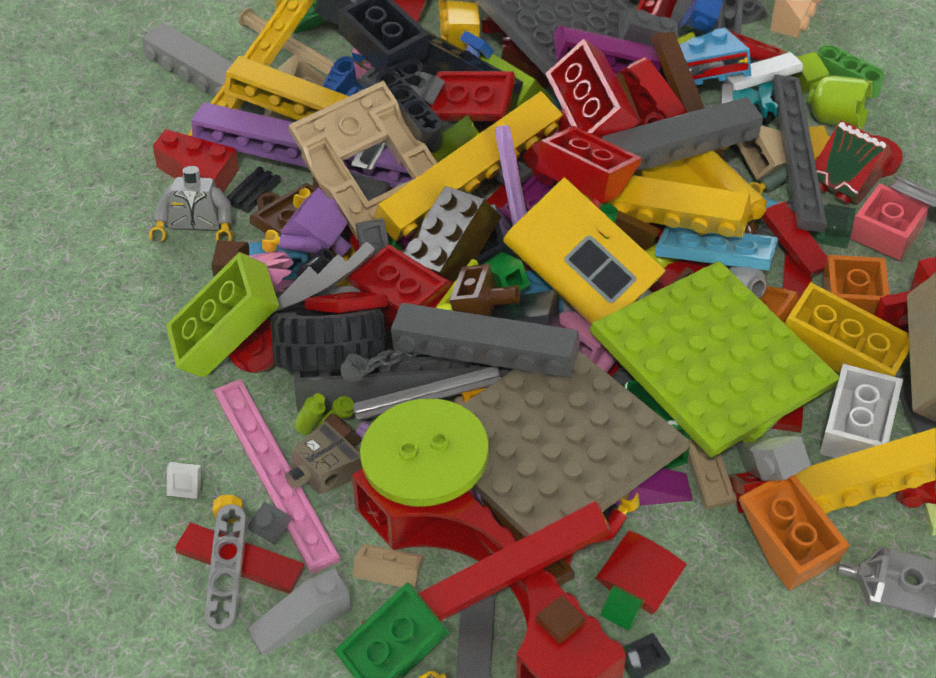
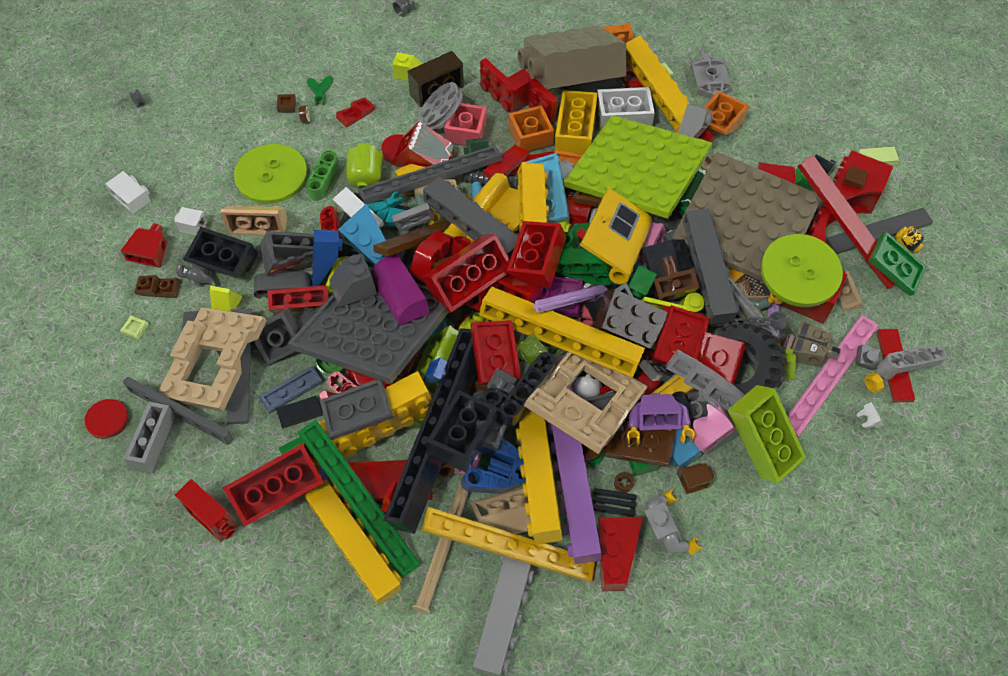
camera: 115 degrees left, 10 degrees up
(302, 611) = (907, 314): light grey slope -> none
(812, 71) = (331, 191): lime brick -> none
(876, 34) = (270, 173): none -> lime plate

